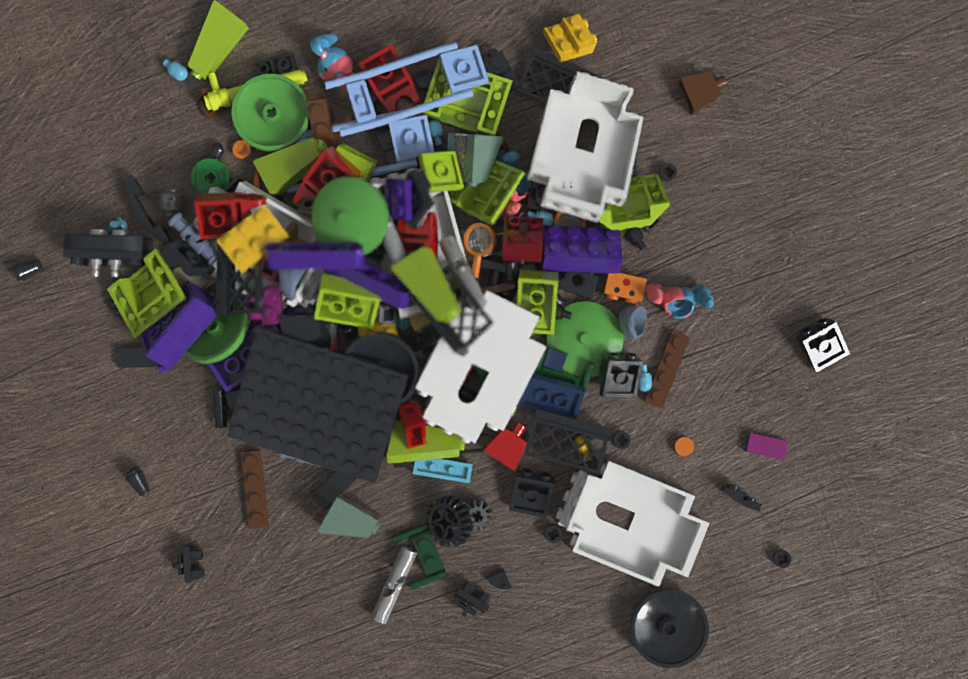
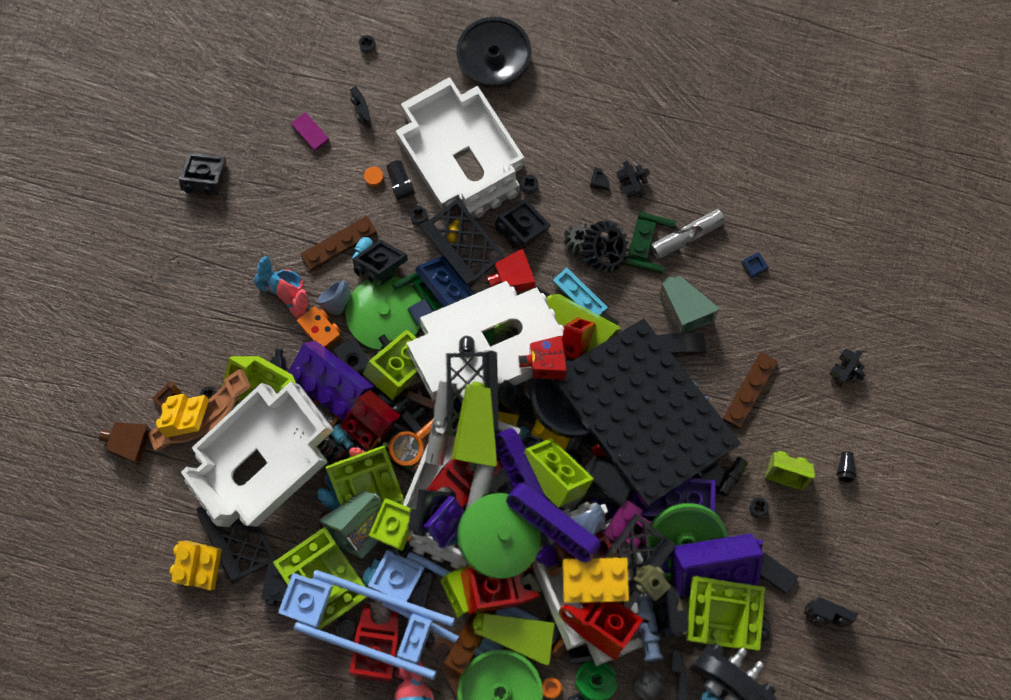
camera: 145 degrees left, 15 degrees down
(72, 352) = (823, 611): none -> black plate
(176, 444) = (790, 471): none -> lime slope
(189, 397) = (764, 509): none -> black bush
(211, 269) = (651, 582): none -> olive brick
(306, 233) = (547, 556): none -> dark purple tile
(323, 598) = (755, 265): none -> dark blue tile
(418, 383) = (545, 359): none -> red torso
(488, 347) = (466, 344): none -> black cylinder
(656, 149) = (217, 408): none -> nougat piece
(656, 456) = (401, 183): none -> black piece
(673, 138) = (181, 415): none -> yellow plate
(698, 148) = (167, 391): none -> reddish brown tile

